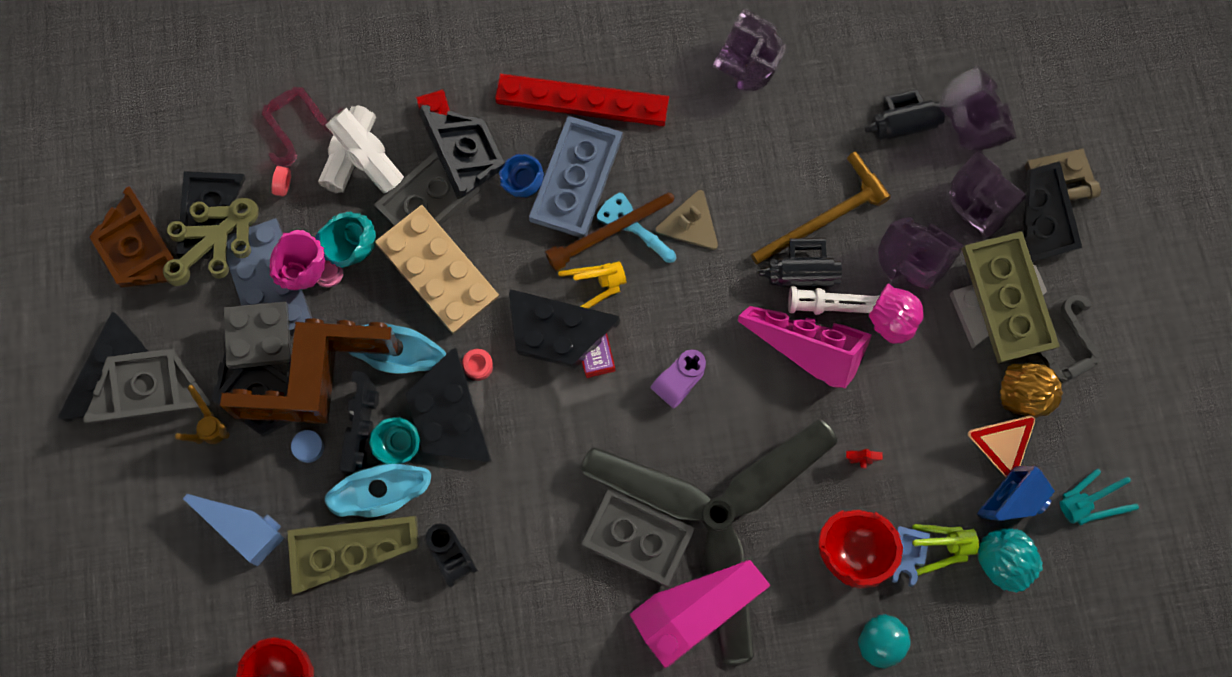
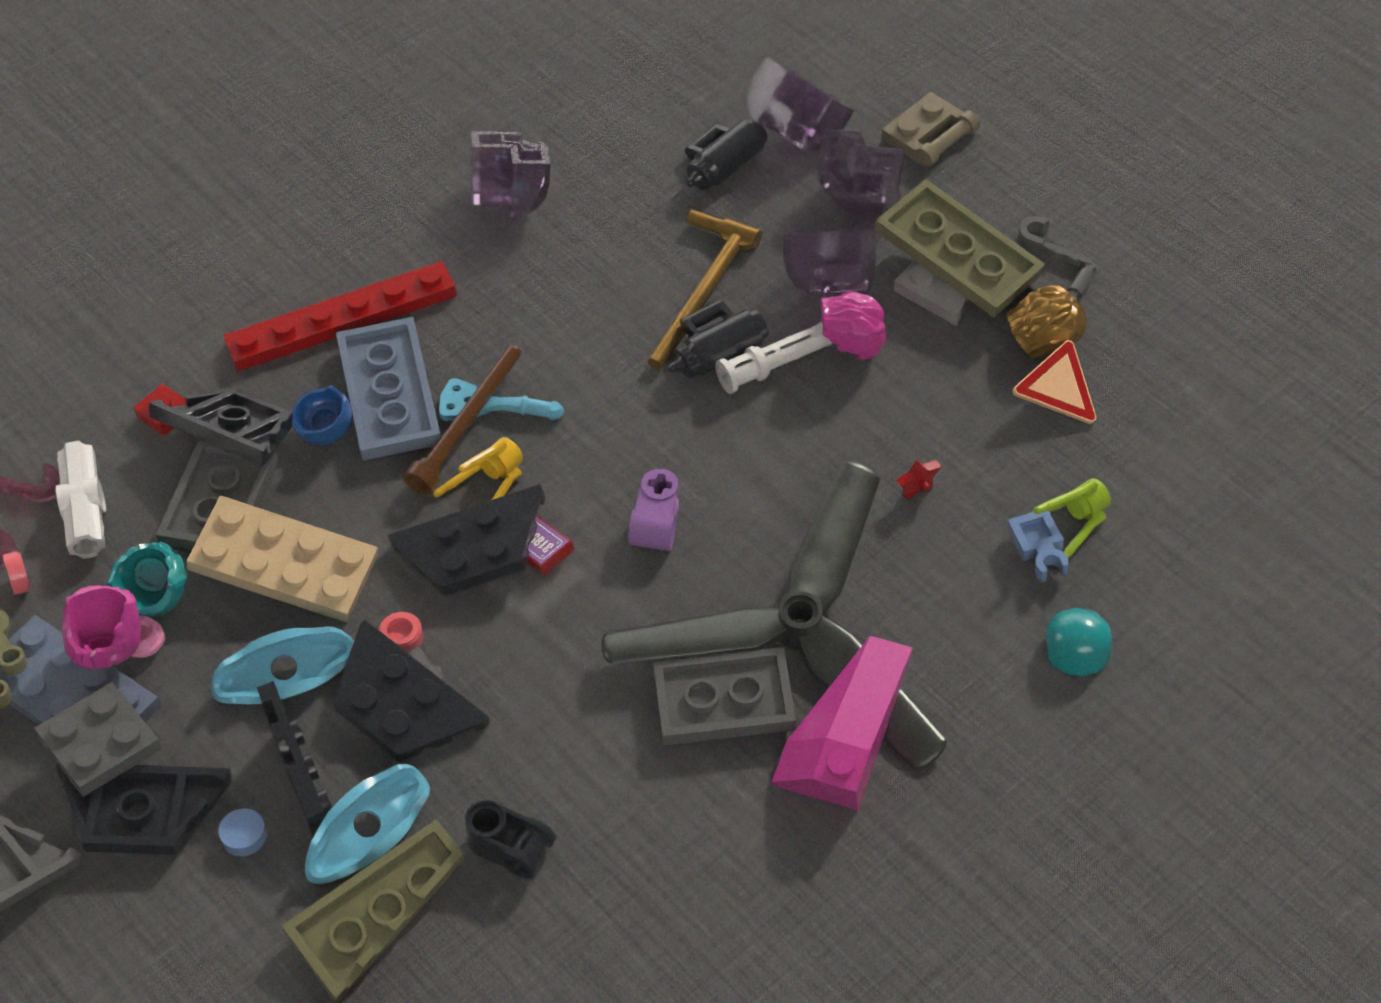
camera: 30 degrees left, 20 degrees down
(208, 428) = (99, 879): pearl gold plant -> none
(243, 529) = (211, 962): medium blue slope -> none
(311, 371) = (214, 755): reddish brown bracket -> none
(364, 150) = (109, 478): white piece -> none
(394, 441) = (354, 755): teal hair -> none
(691, 223) = (556, 369): dark tan piece -> none
(820, 350) = (801, 404): dark pink wedge -> none
(860, 548) = (983, 558): red cylinder -> none
(1010, 559) = (1149, 485): teal hair -> none
(1019, 495) = (1112, 417): blue slope -> none
(1049, 214) = (940, 155): black wing -> none
(1079, 506) = (1180, 400): teal plant -> none

